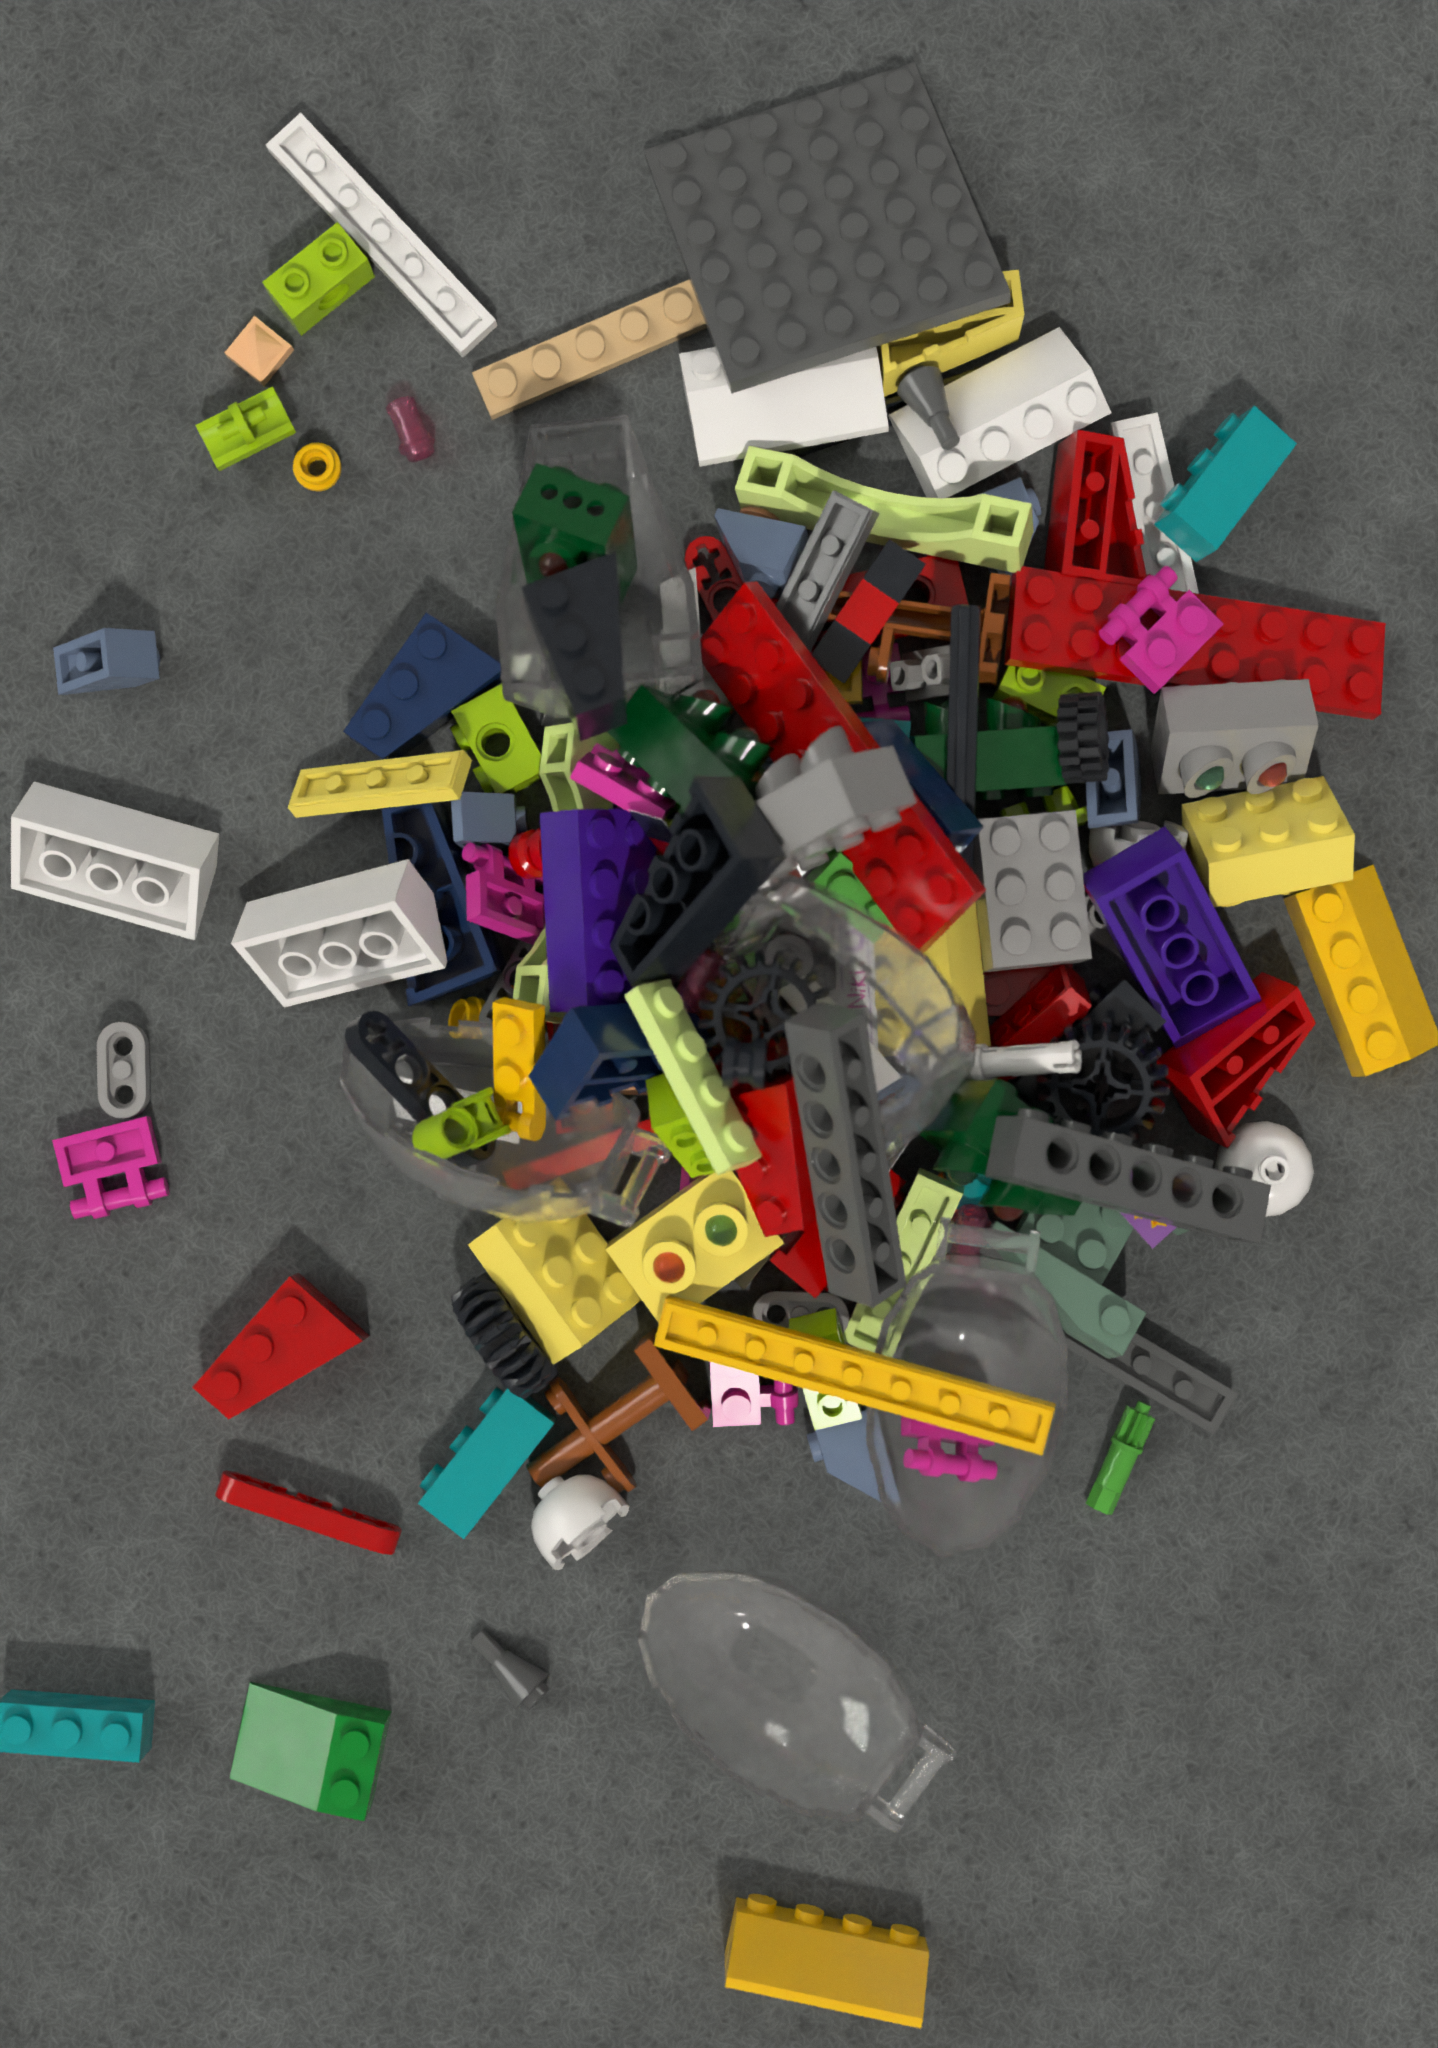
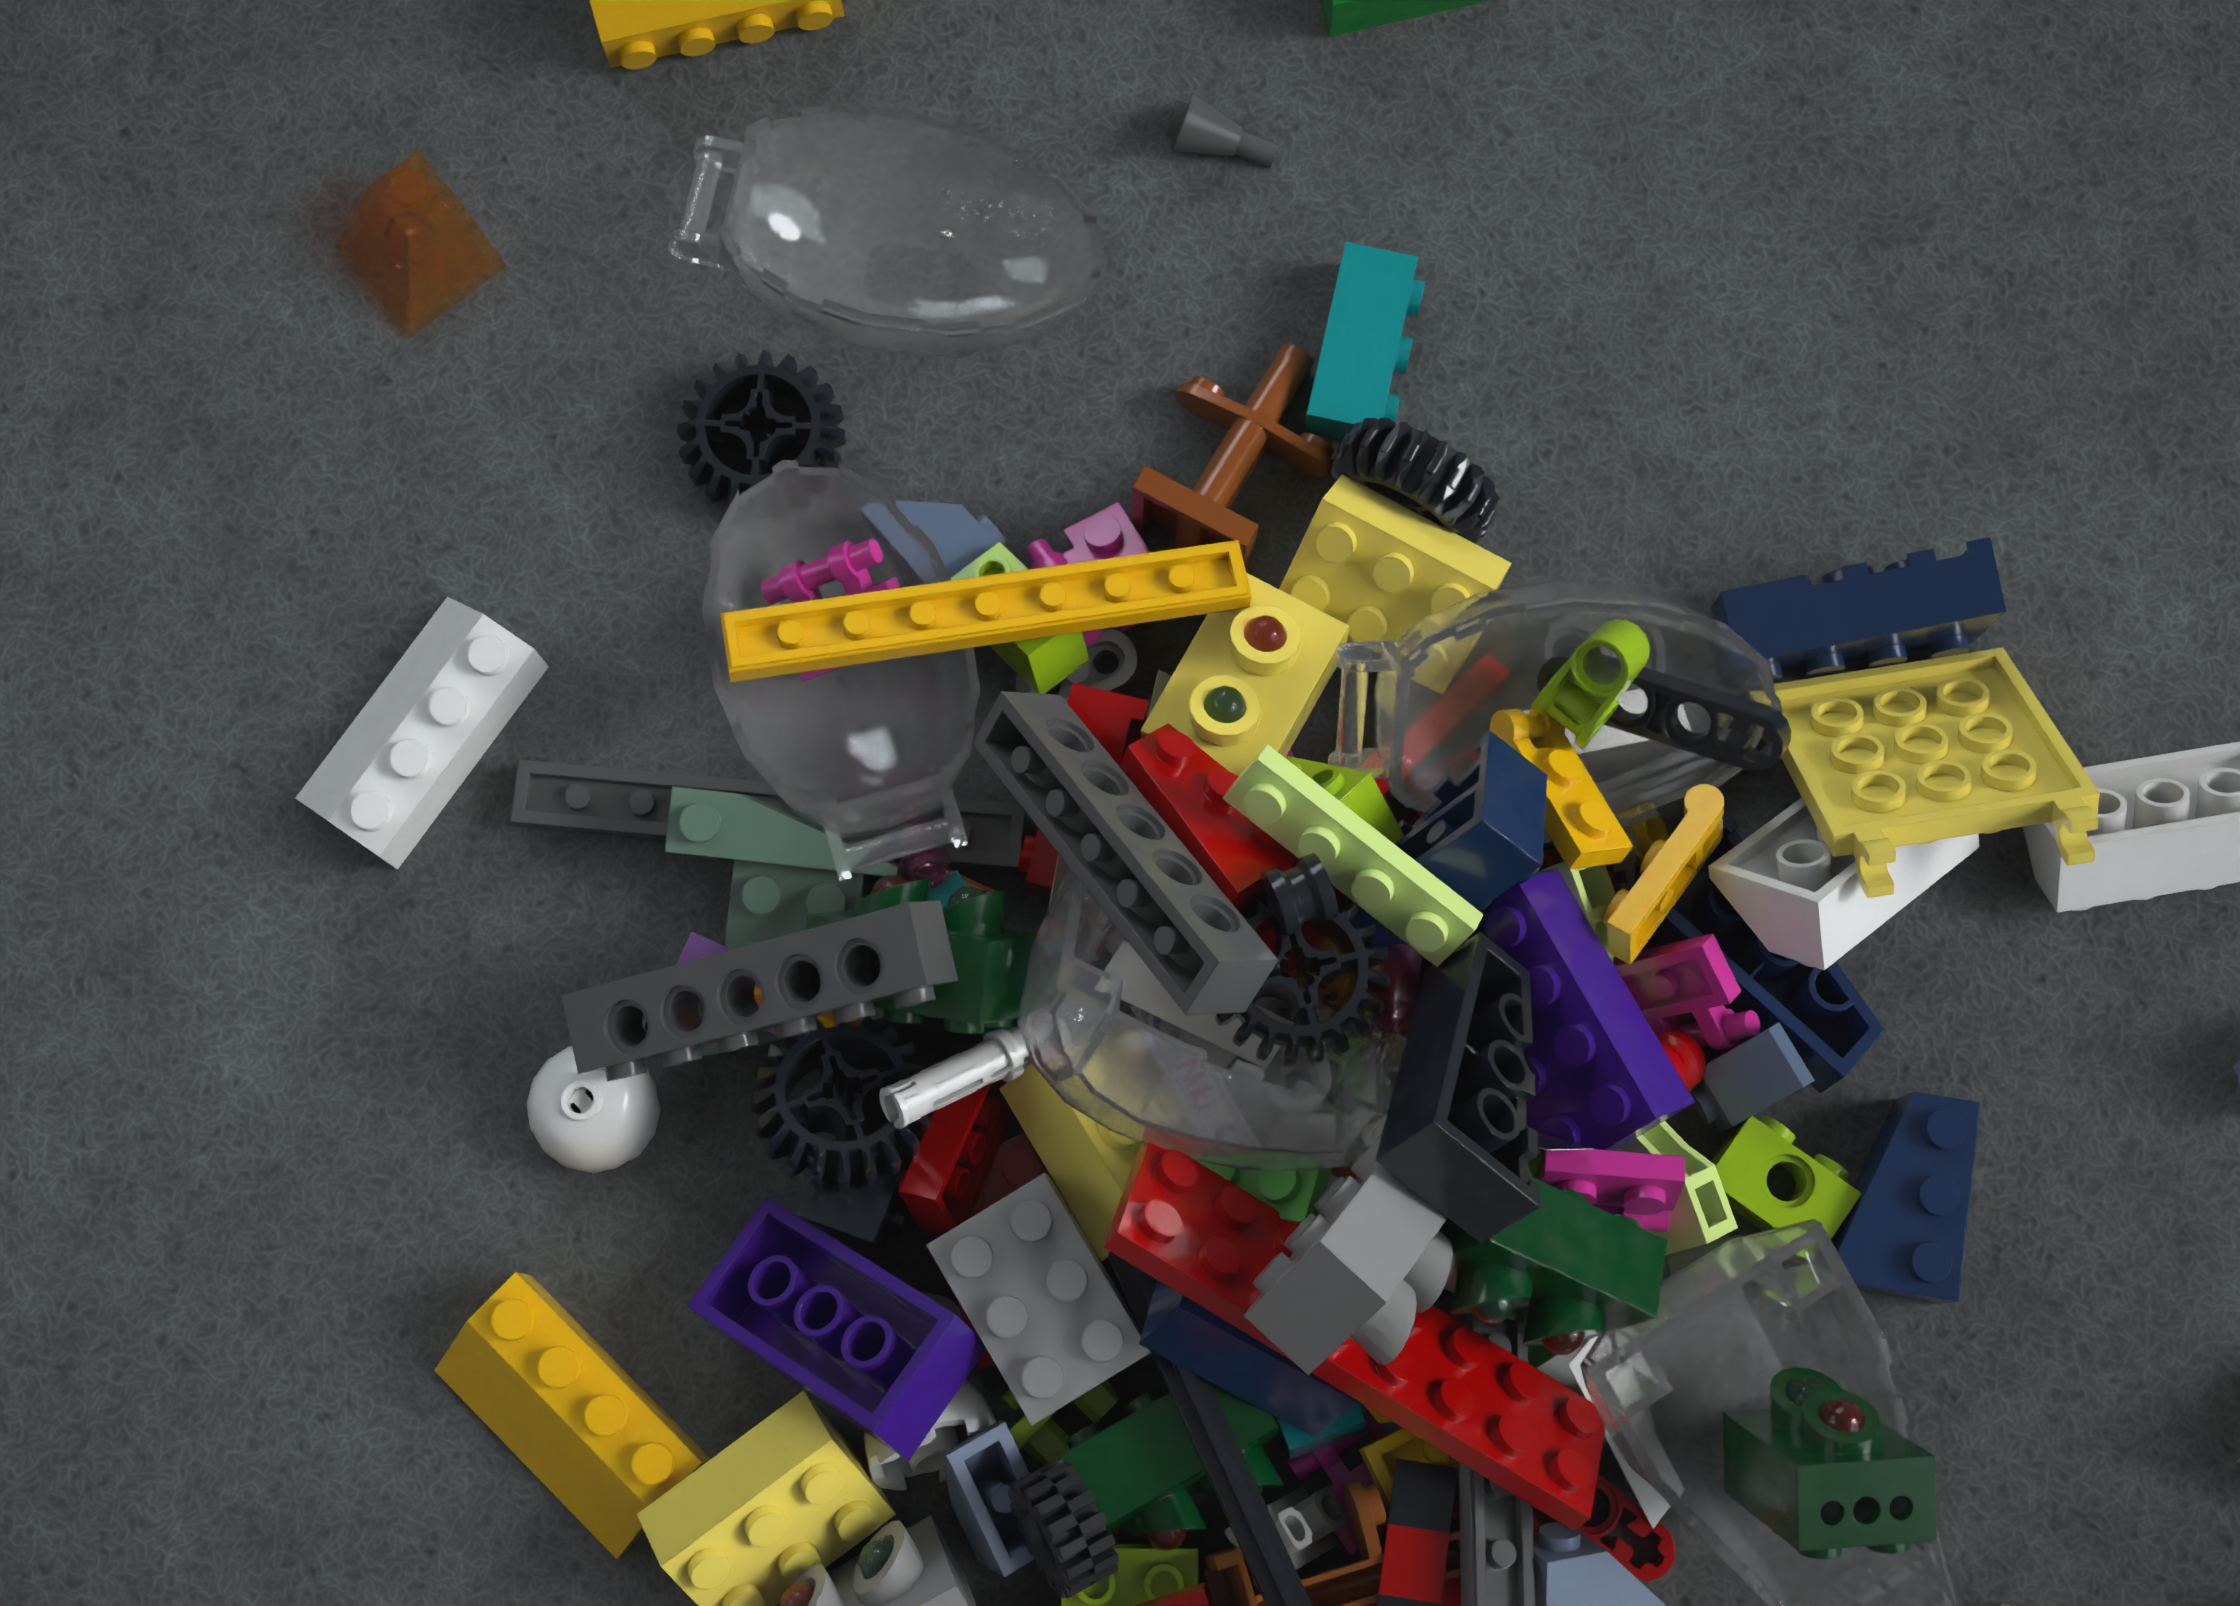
camera: 160 degrees right, 10 degrees down
(109, 1152) = (1977, 487): dark pink plate -> none
(119, 1070) = (2024, 586): light grey plate -> none
(244, 1099) = (1867, 613): none -> dark blue wedge
(256, 973) = (1931, 758): none -> light yellow plate
(279, 1345) = (1665, 361): red wedge -> none
(308, 1513) = (1535, 197): red beam -> none
(313, 452) = (2206, 1426): yellow plate -> none
(380, 784) = (1899, 1059): light yellow tile -> none
(414, 439) = (2095, 1535): clear pink pin -> none
(476, 976) = (1665, 874): none -> yellow plate
(574, 1517) = (1236, 323): white cylinder -> none
(582, 641) = (1759, 1334): black wedge -> none
(918, 1228) = (987, 808): yellowish green plate -> none
(933, 1614) = (735, 429): none -> black gear
(1121, 1457) = (619, 697): bright green piece -> none
(1126, 1858) = (416, 245): none -> clear orange slope
(1230, 1064) = (689, 1211): red wedge -> none
(1273, 1489) = (423, 731): none -> white slope

